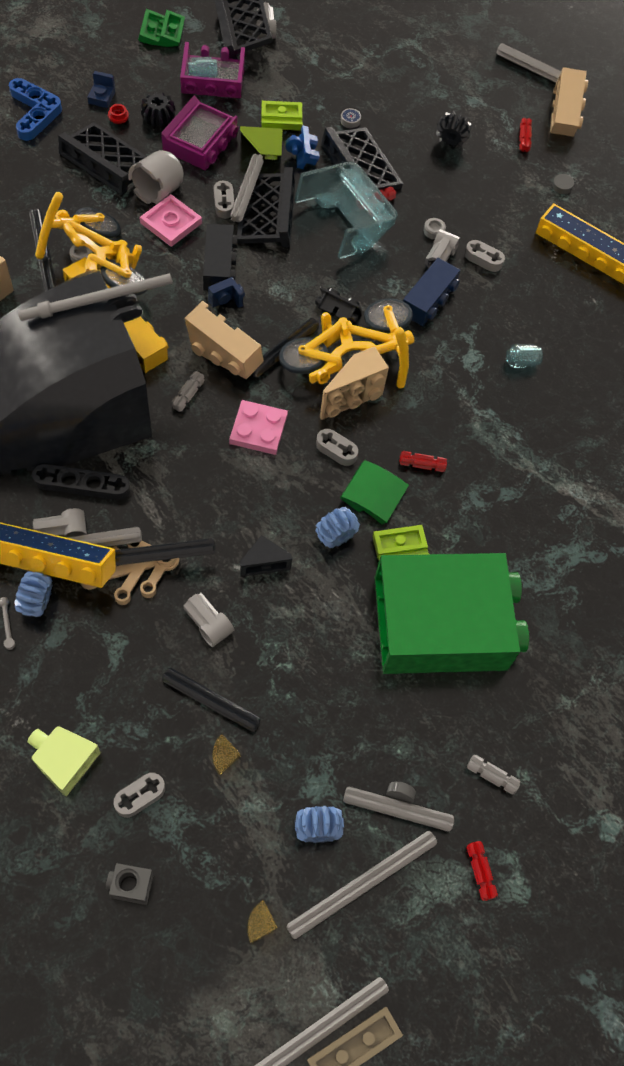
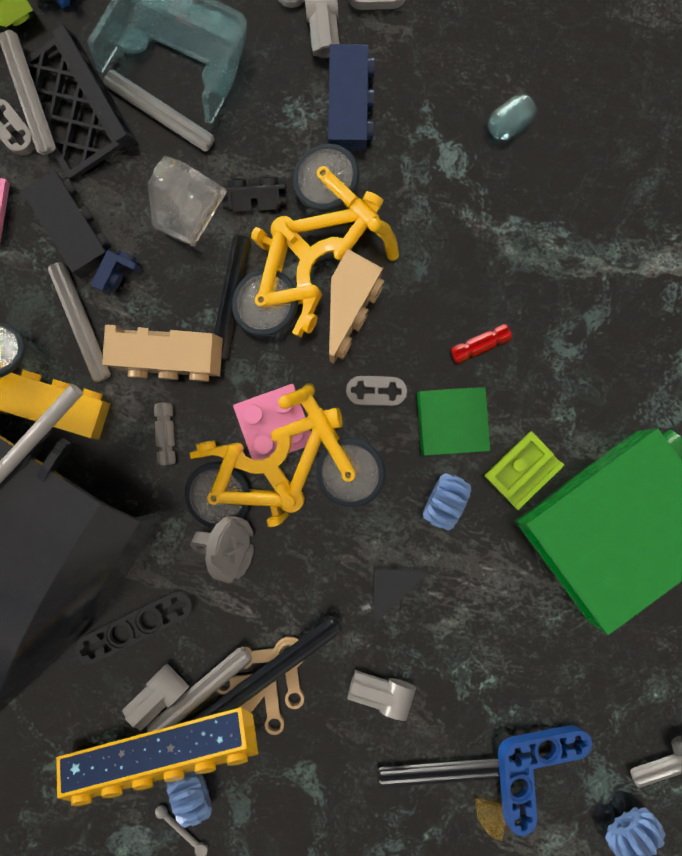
camera: 25 degrees left, 25 degrees up
(177, 467) = (226, 548): none -> light grey tile
(184, 307) = (78, 321): none -> light grey axle
(270, 726) = (523, 768): none -> blue beam
(284, 466) = (346, 470): none -> piece
(295, 278) = (182, 200): none -> clear slope
(314, 239) = (158, 110): none -> light grey axle

